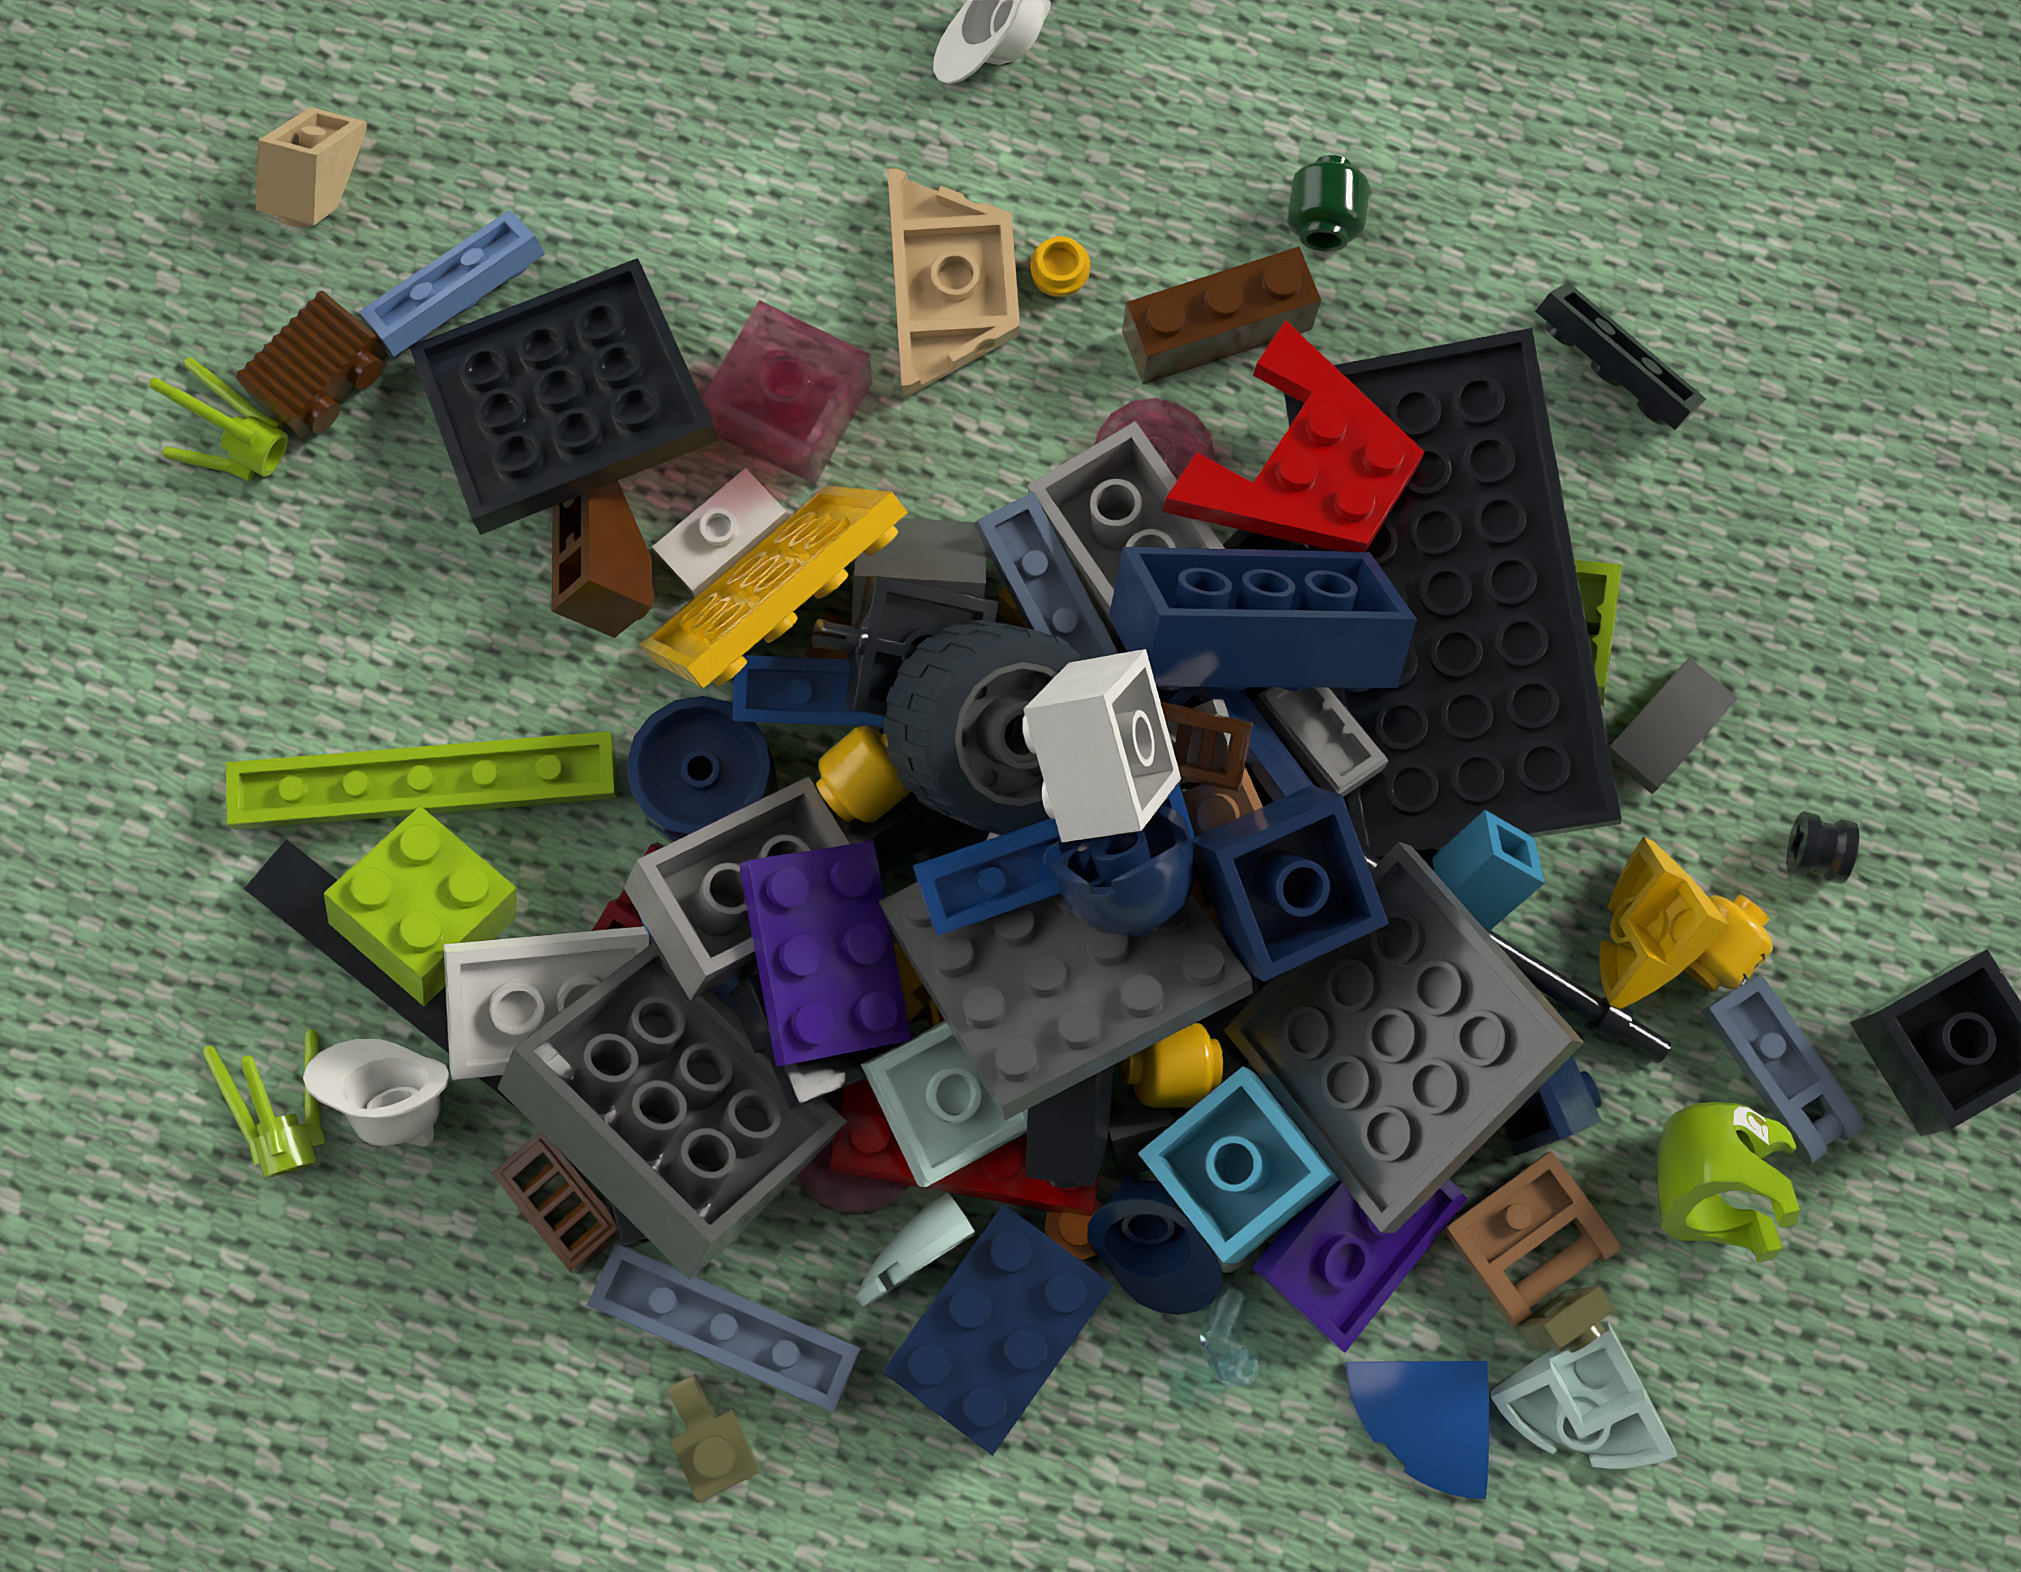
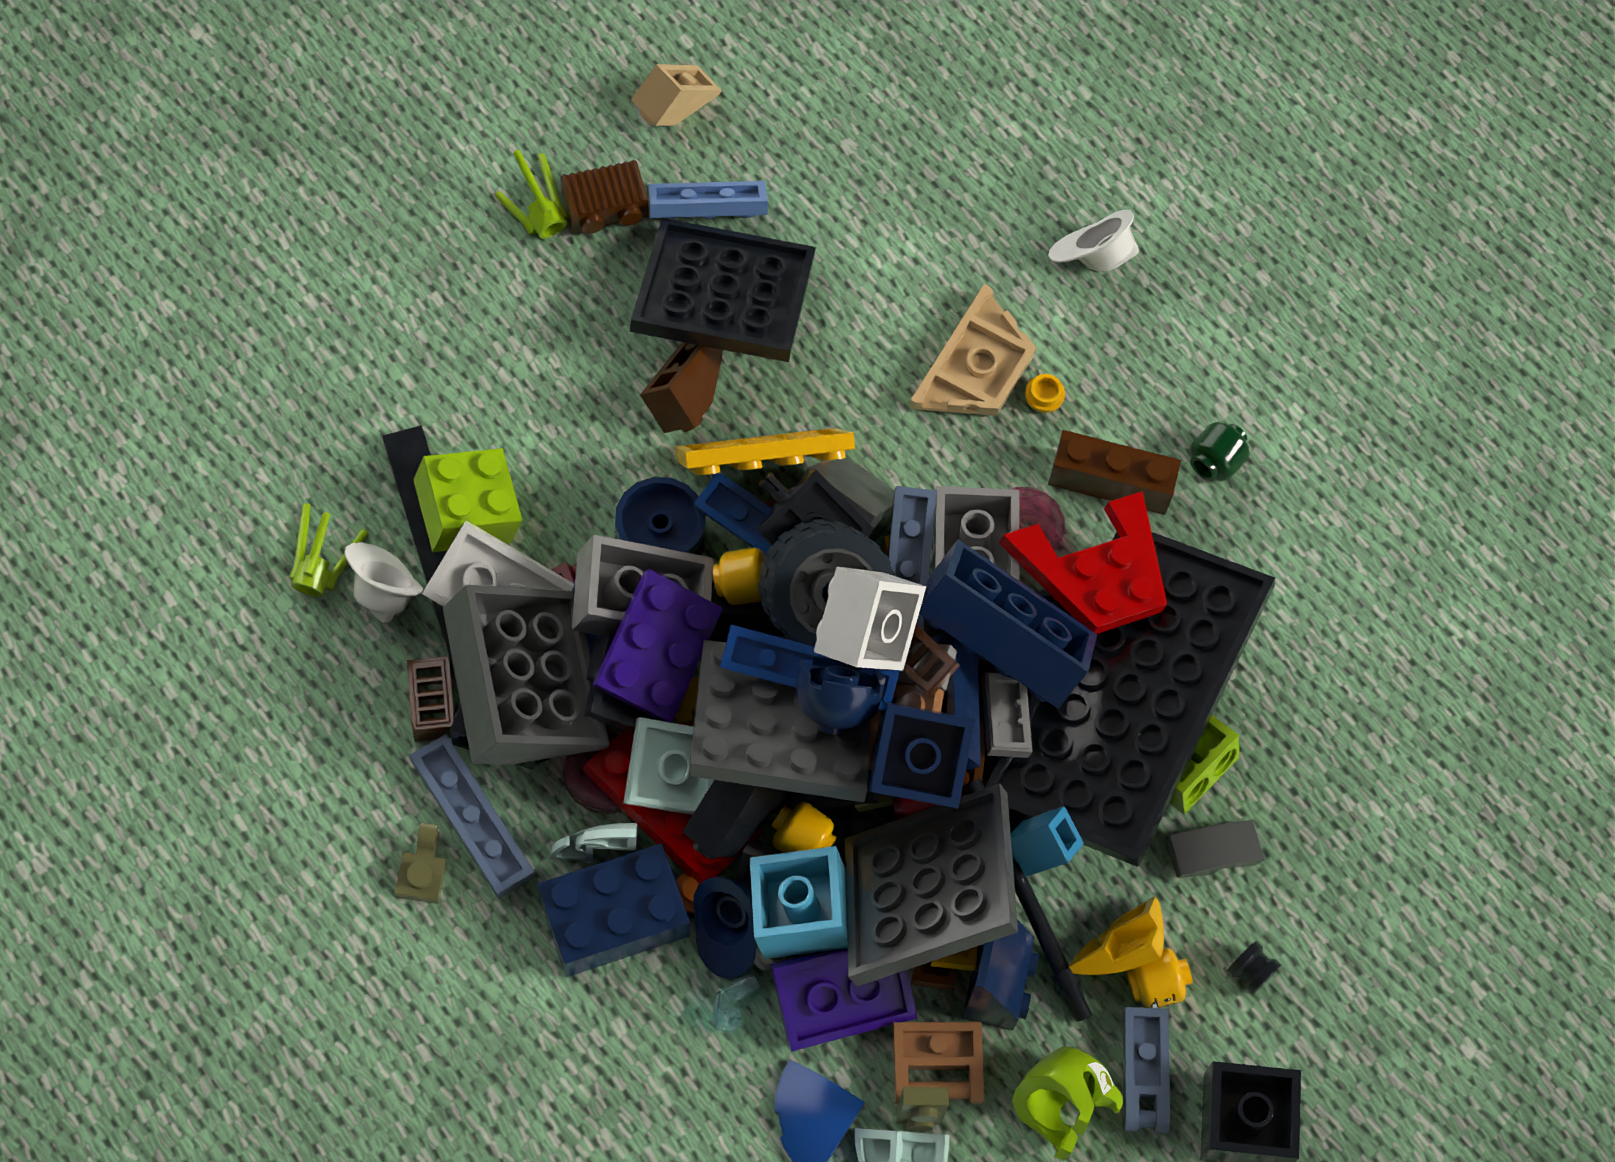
camera: 30 degrees right, 10 degrees down
(432, 777) = (522, 444): lime plate -> none
(720, 532) = (759, 415): white plate -> none
(787, 391) = (845, 364): clear pink brick -> none
(1619, 356) = (1329, 635): black plate -> none

